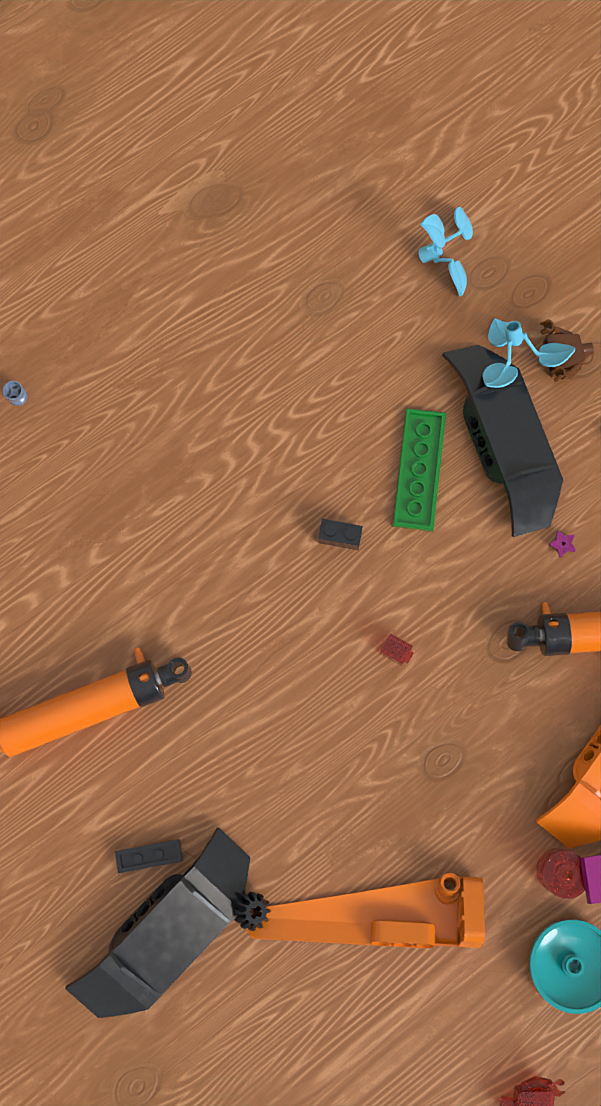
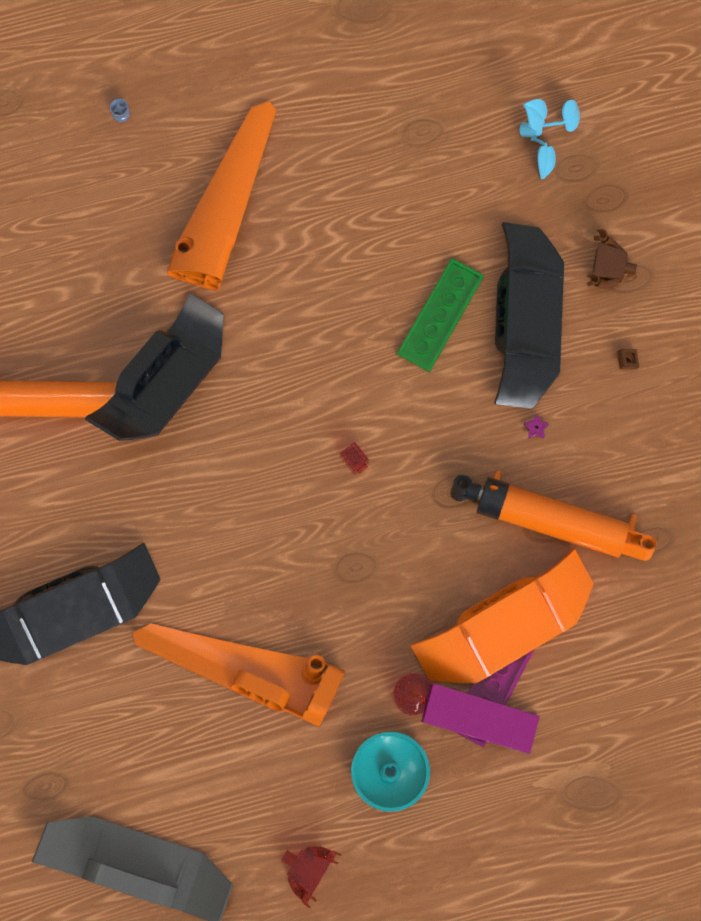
camera: 15 degrees right, 0 degrees up
(148, 856) = (77, 543): black plate -> none
(157, 451) = (220, 211): none -> orange panel
(166, 648) = (163, 374): none -> black piece
(258, 905) = (151, 620): black gear -> none
(340, 534) = (348, 342): black brick -> none
(511, 333) = (566, 228): medium azure plant -> none

